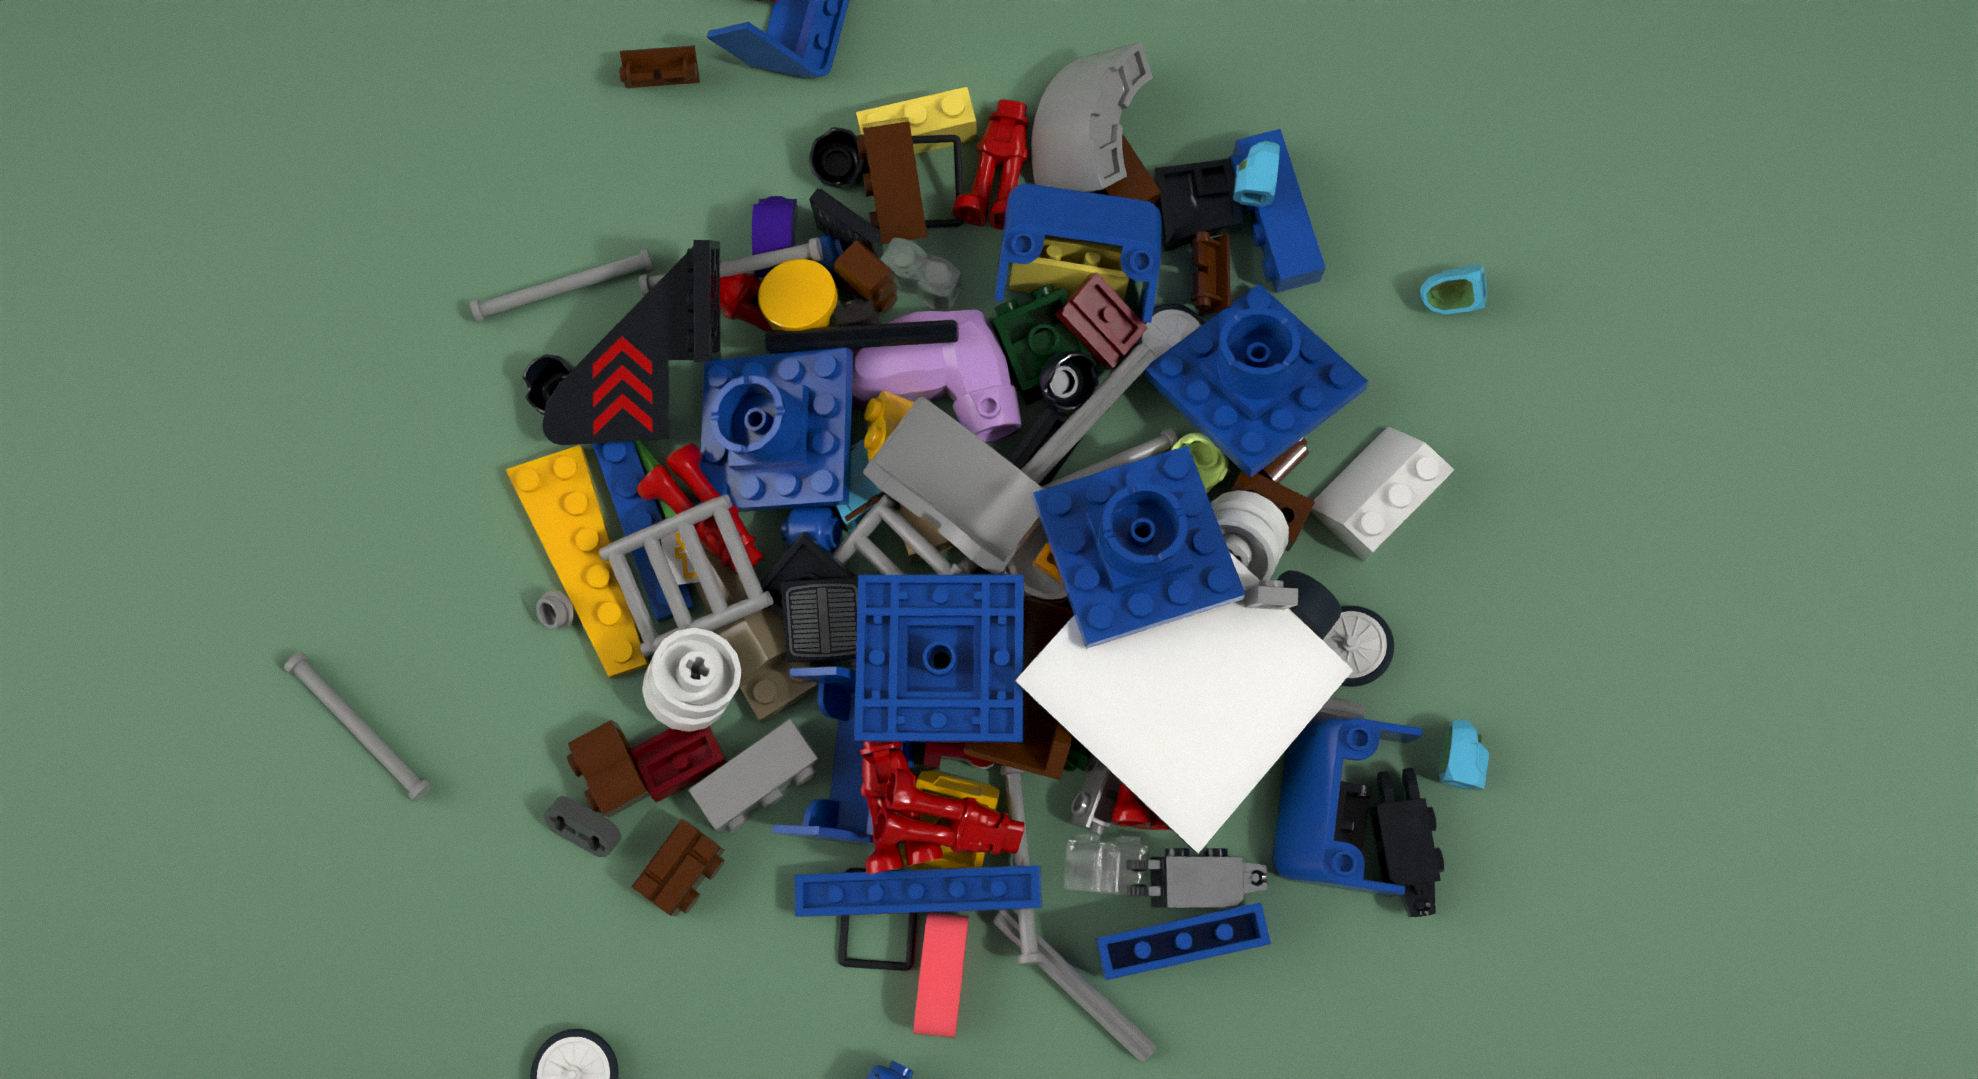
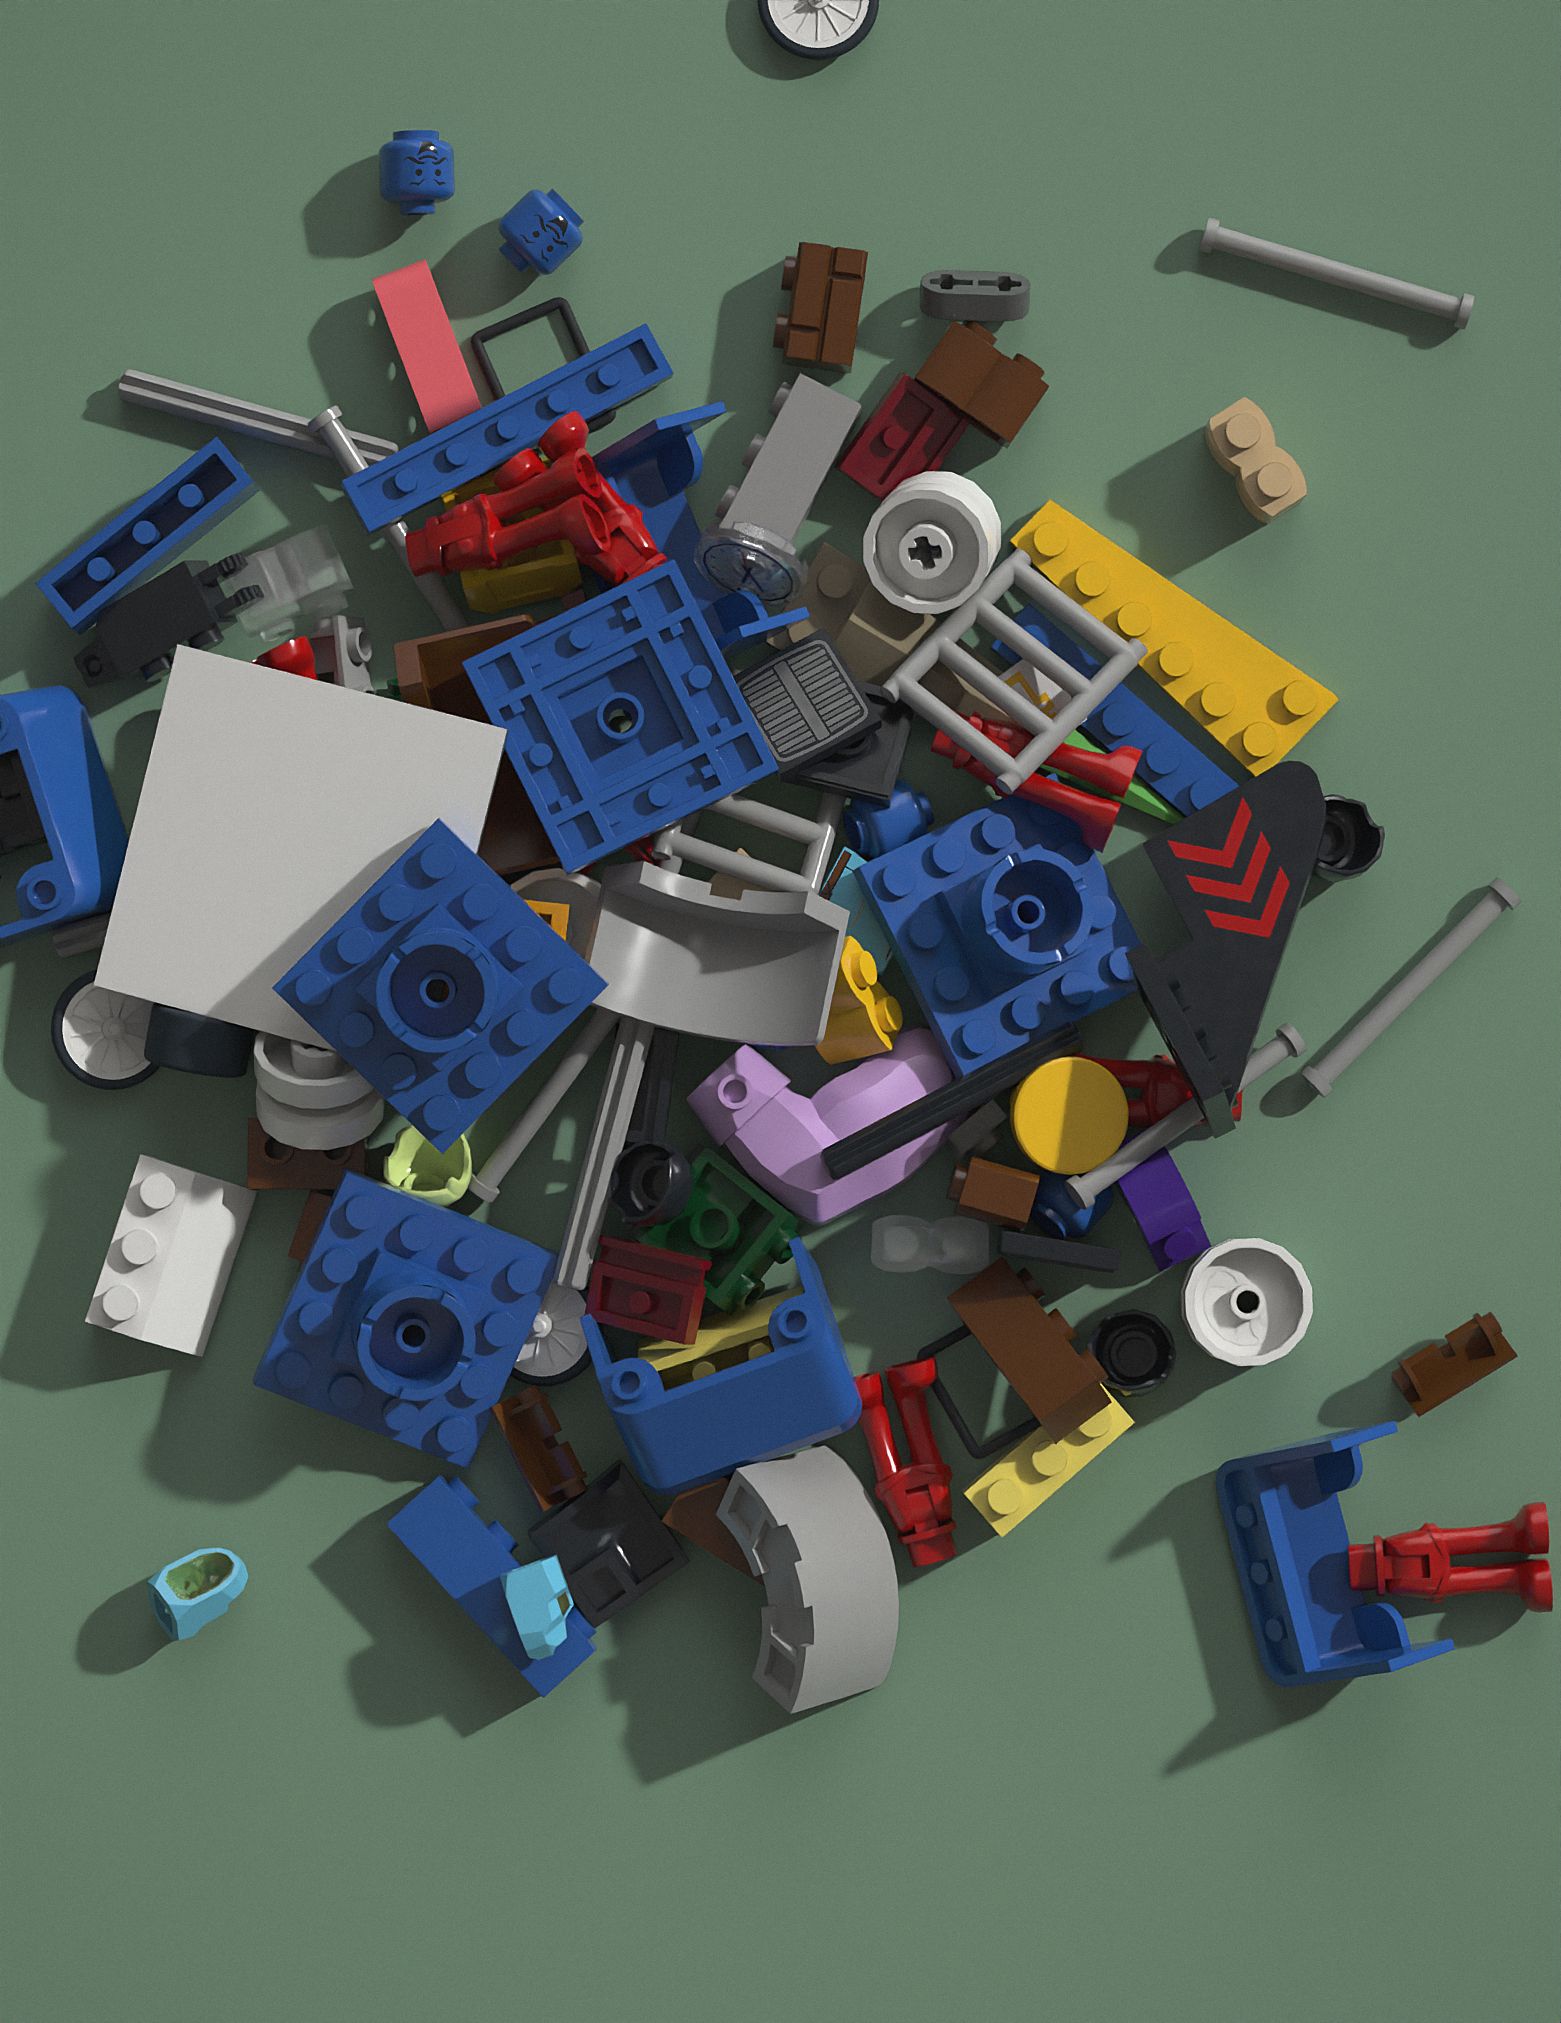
camera: 150 degrees right, 10 degrees up
(470, 643) = (1246, 448): none -> tan brick
(555, 610) = (1166, 547): light grey plate -> none
(755, 151) = (1261, 1333): none -> white wheel
(807, 726) = (753, 561): none -> clear tile
(831, 1011) = (540, 232): none -> blue head
(1271, 595) = (240, 1012): light grey plate -> none

